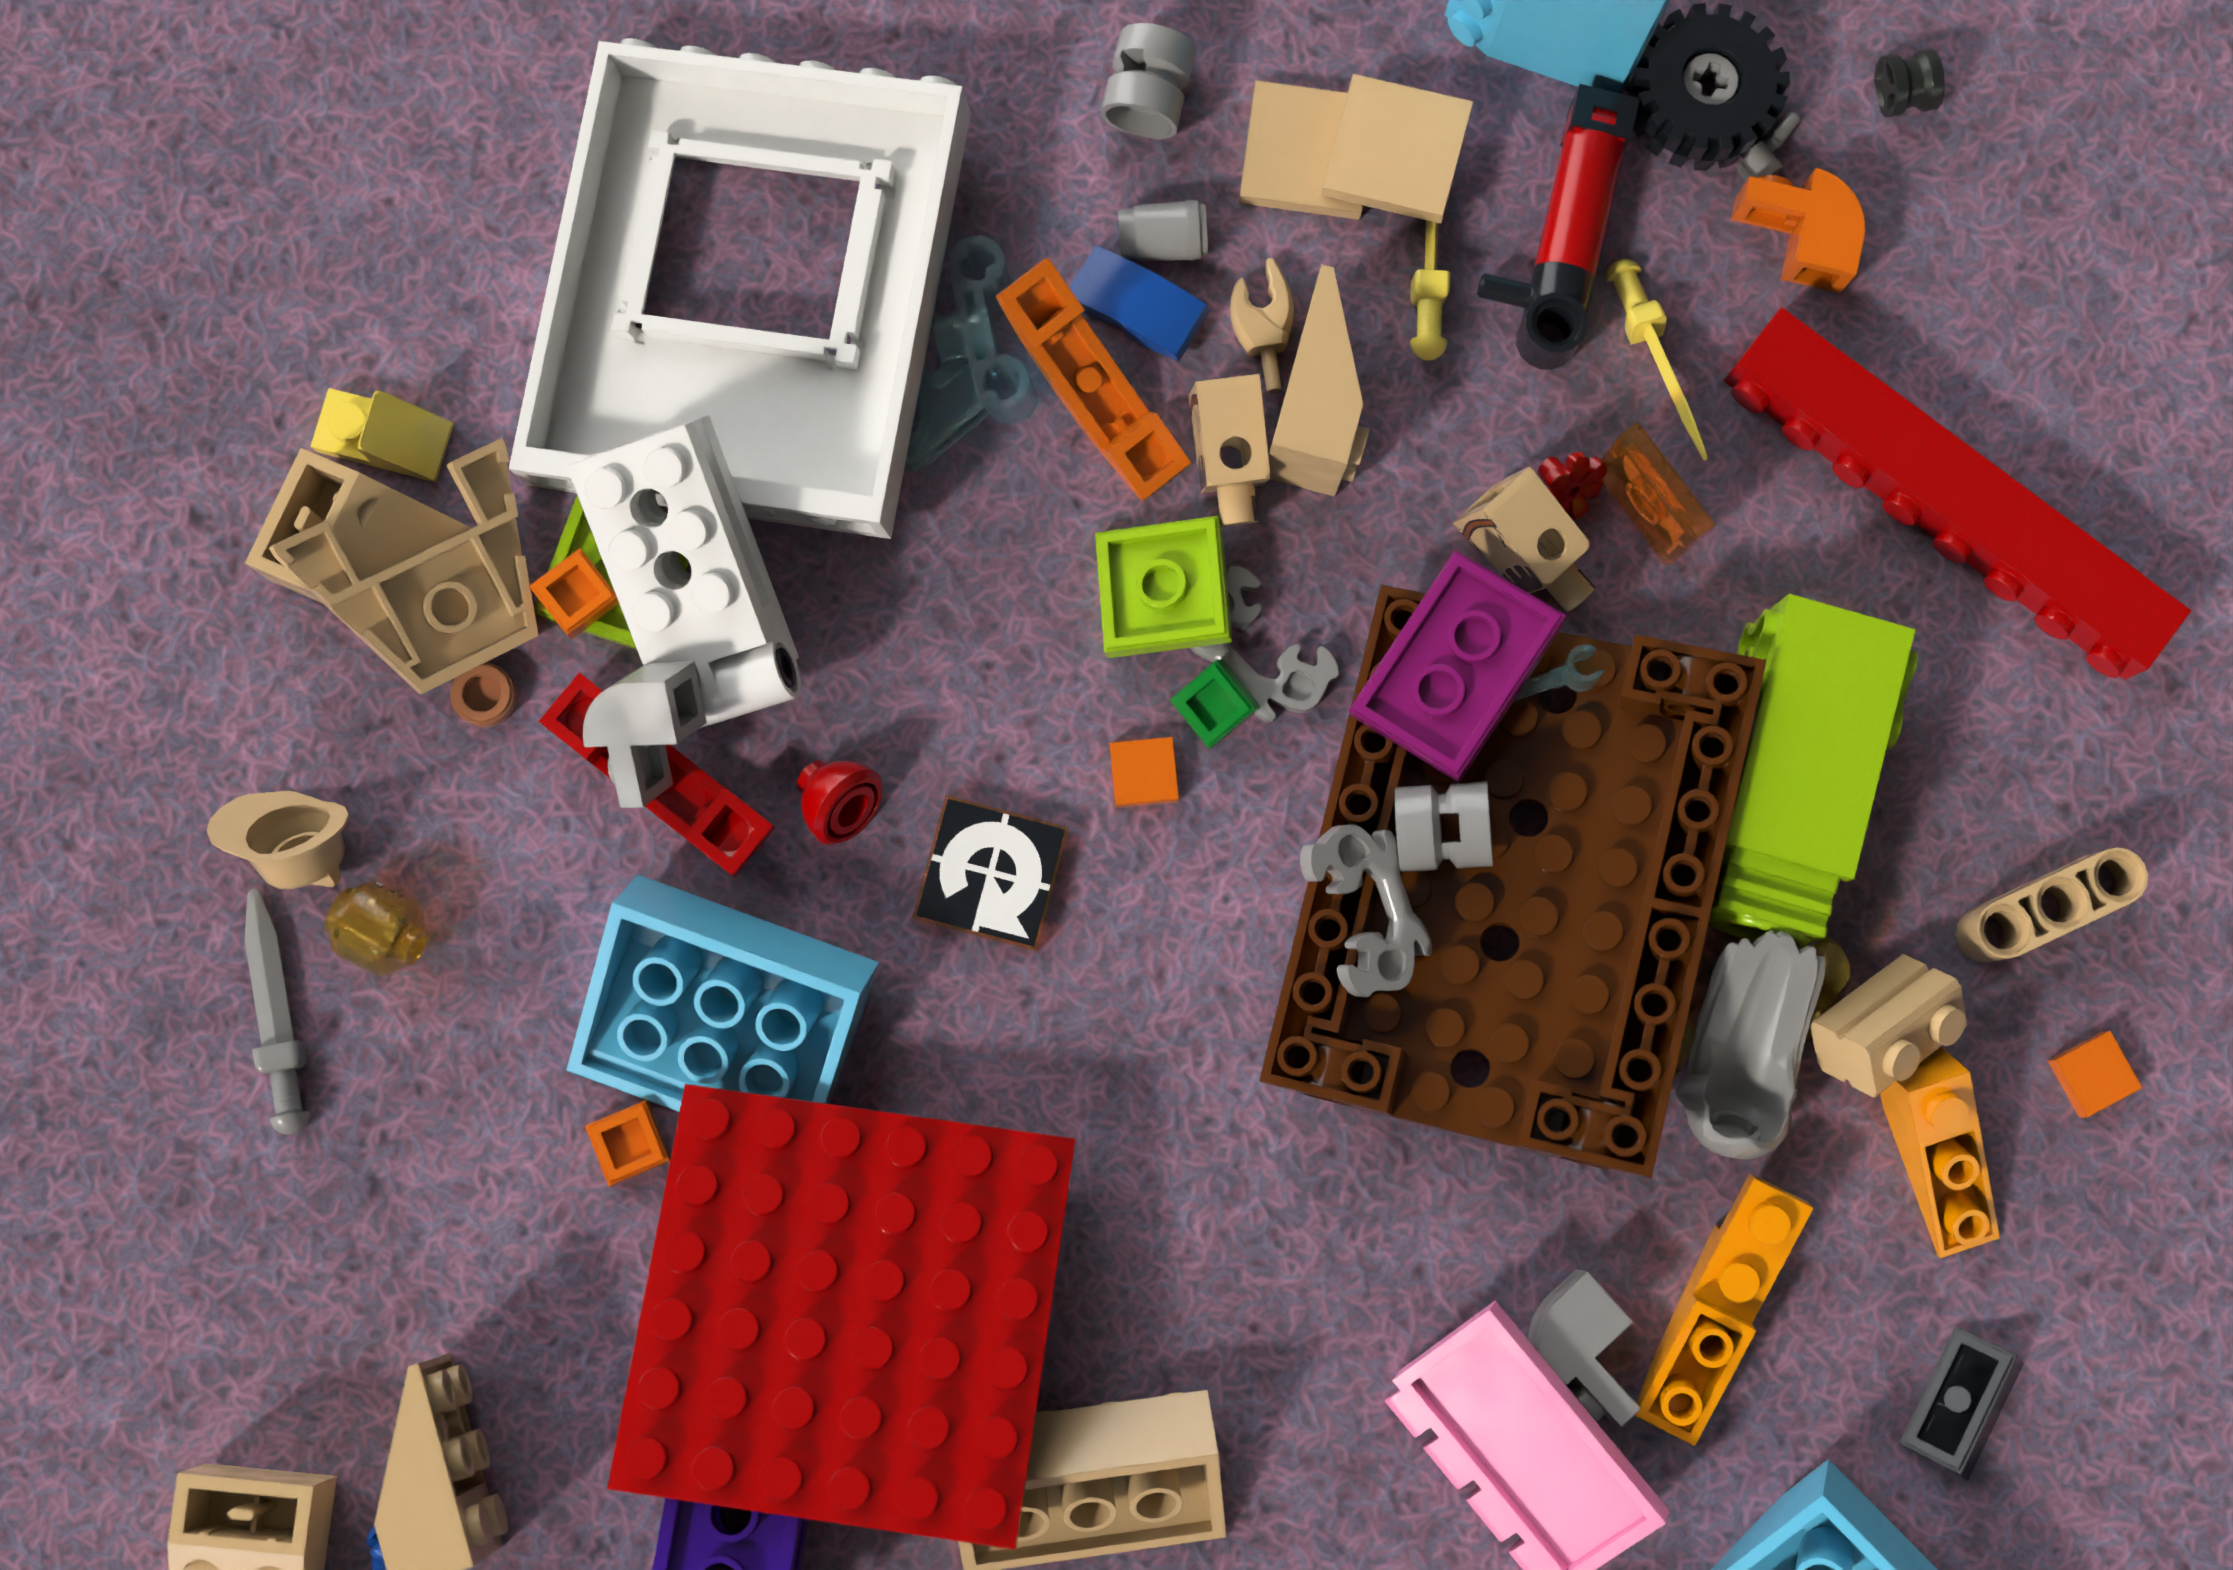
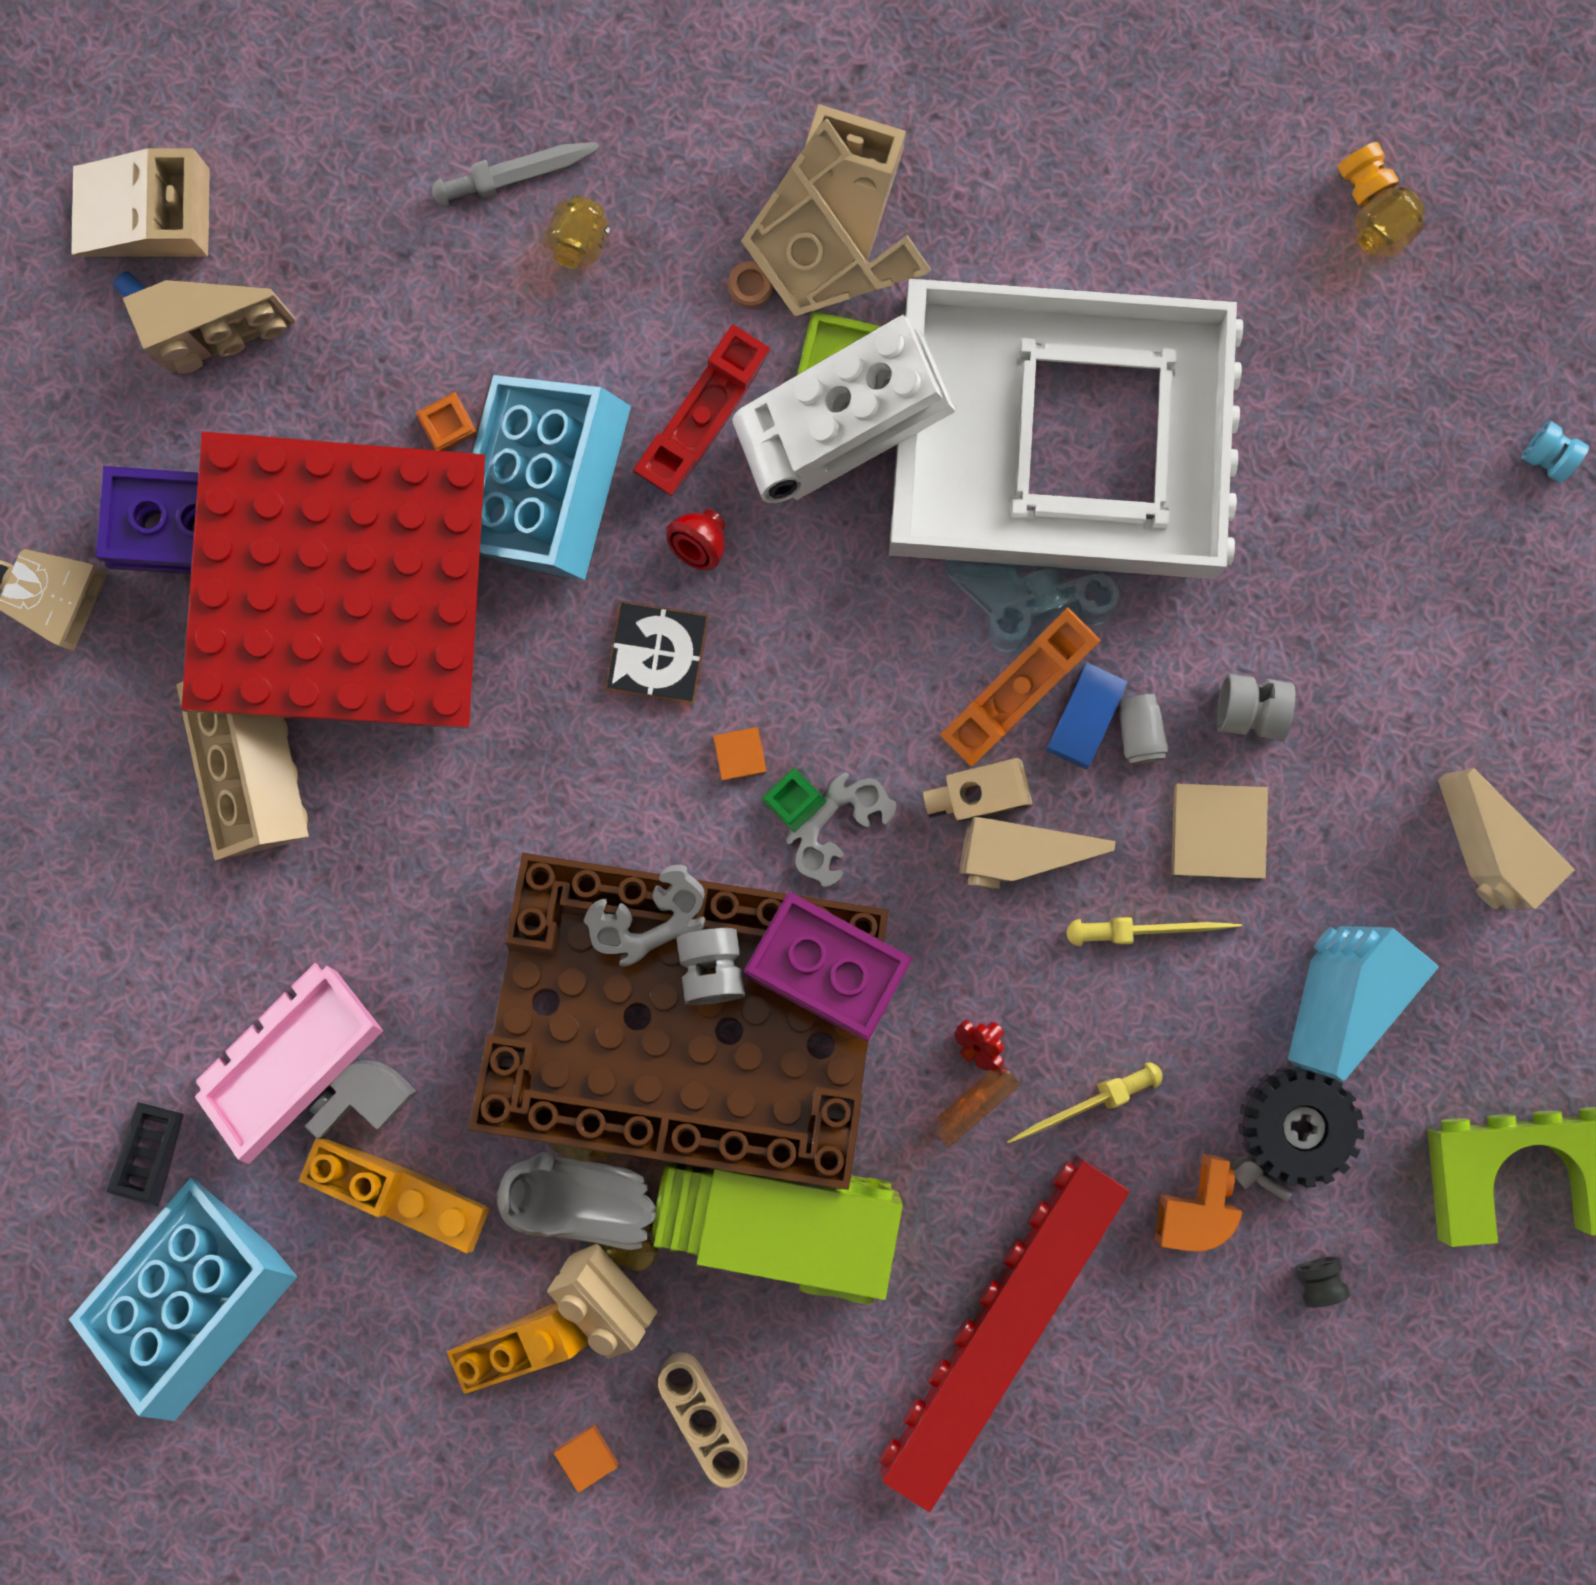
camera: 90 degrees right, 5 degrees up
(284, 837) = (634, 159): tan piece -> none
(382, 433) = (931, 189): light yellow slope -> none
(575, 593) = (825, 335): orange tile -> none
(636, 721) = (730, 394): light grey brick -> none
(1163, 587) = (874, 754): lime tile -> none
(1267, 328) = (1077, 811): tan hand -> none
(1397, 148) = (1224, 895): tan tile -> none
(1515, 522) = (947, 1002): tan torso -> none
(1564, 675) = (830, 1044): clear light blue hand -> none
(1573, 228) = (1180, 1033): piece -> none
(1962, 1402) = (345, 1372): black slope -> none

